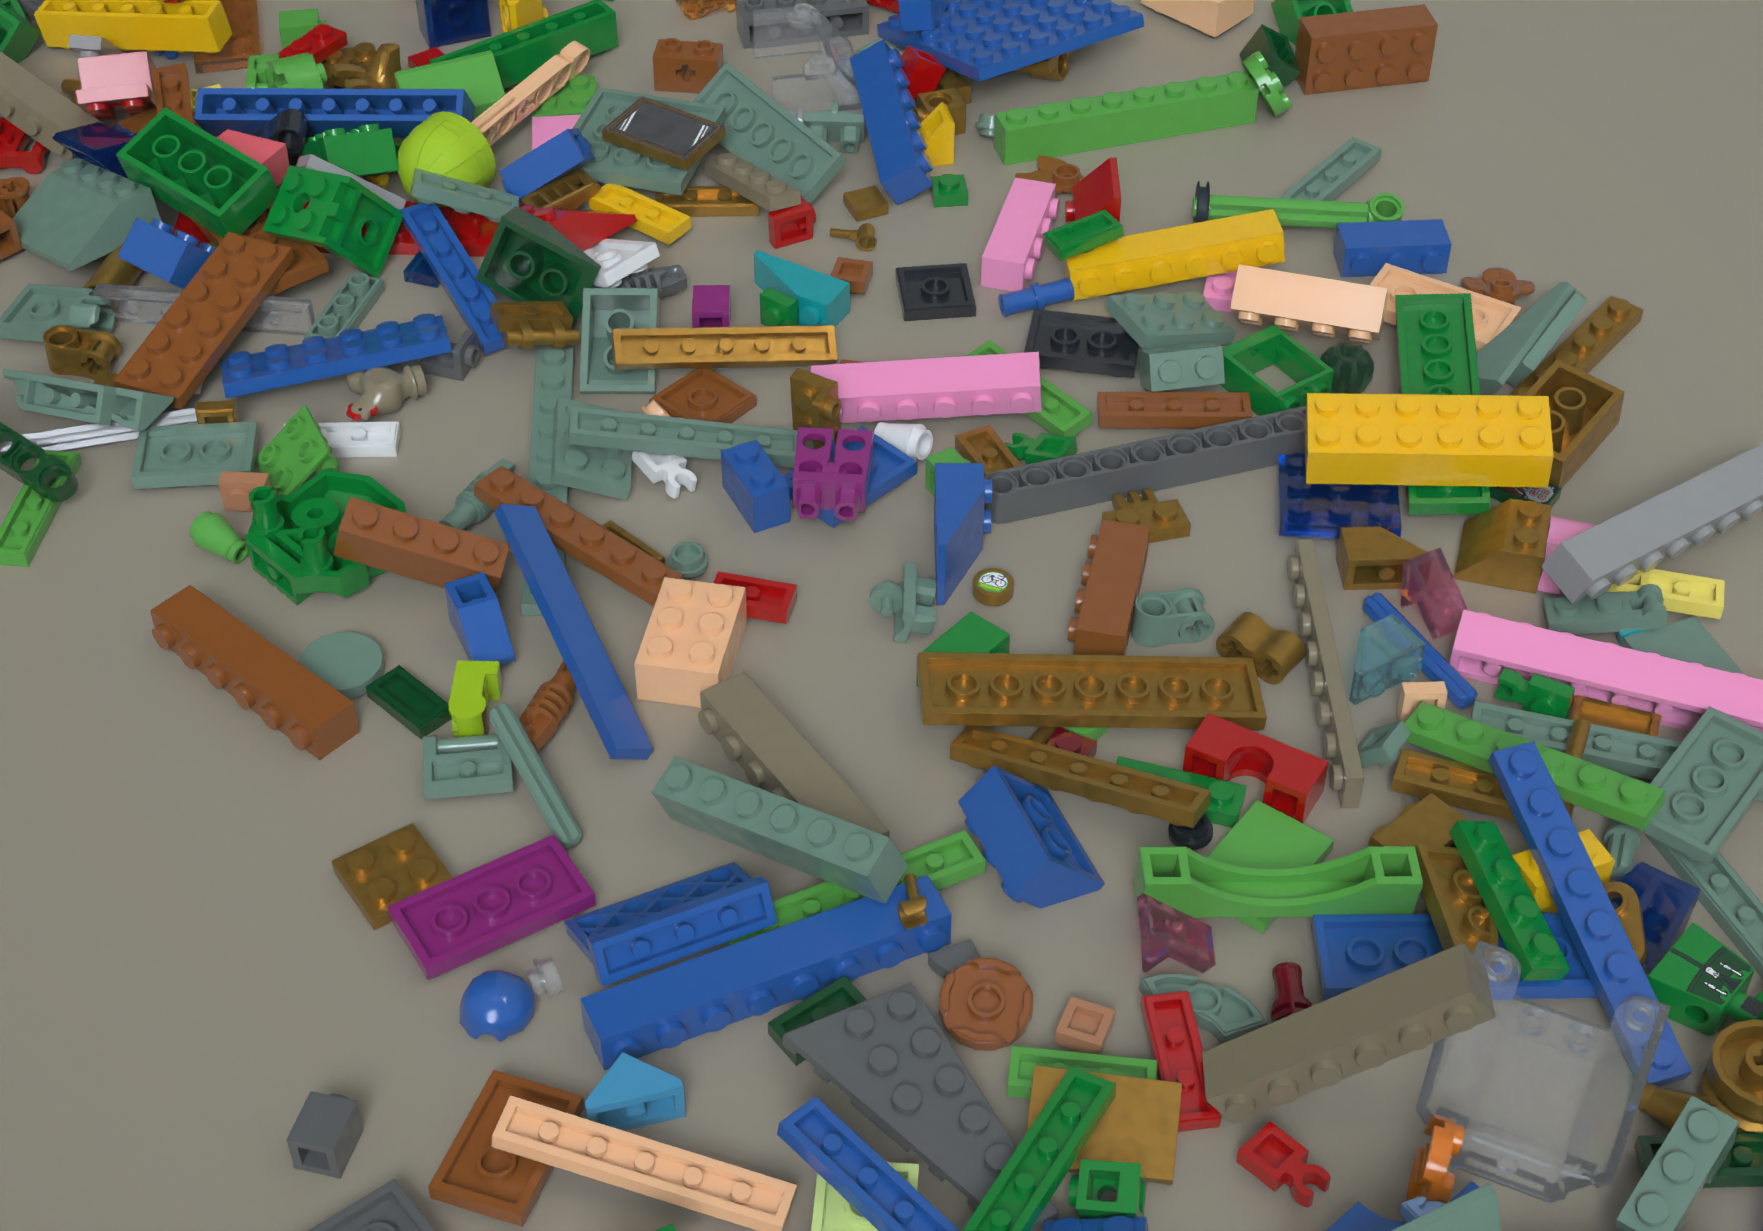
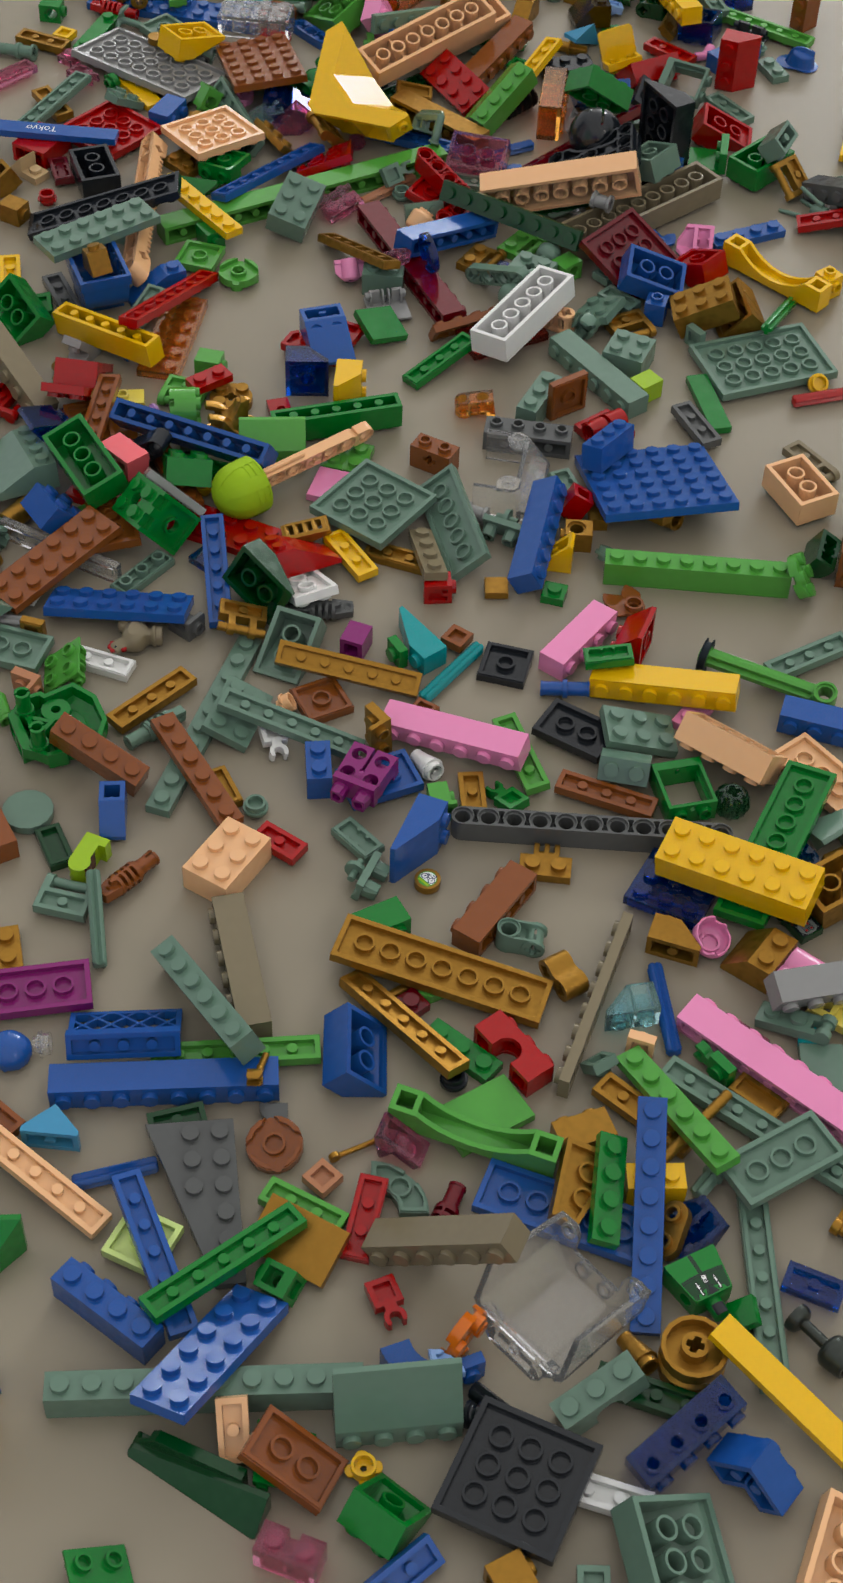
camera: 20 degrees right, 5 degrees up
(453, 464) = (151, 699): none -> pearl gold plate
(461, 195) = (241, 516): sand green plate -> none
(547, 163) = (305, 507): blue brick -> none
(574, 633) = (160, 834): blue tile -> none
(664, 133) = (387, 504): tile -> none
(762, 1126) = (102, 1176): none -> blue axle
(861, 560) = (357, 839): none -> sand green plate
(863, 236) = (480, 612): pearl gold hand -> none
(867, 317) = (452, 671): none -> teal axle
(1129, 947) = (336, 1156): none -> pearl gold hinge
(1430, 533) = (712, 937): none -> bright pink hair
(1432, 586) = (690, 973): clear pink slope -> none

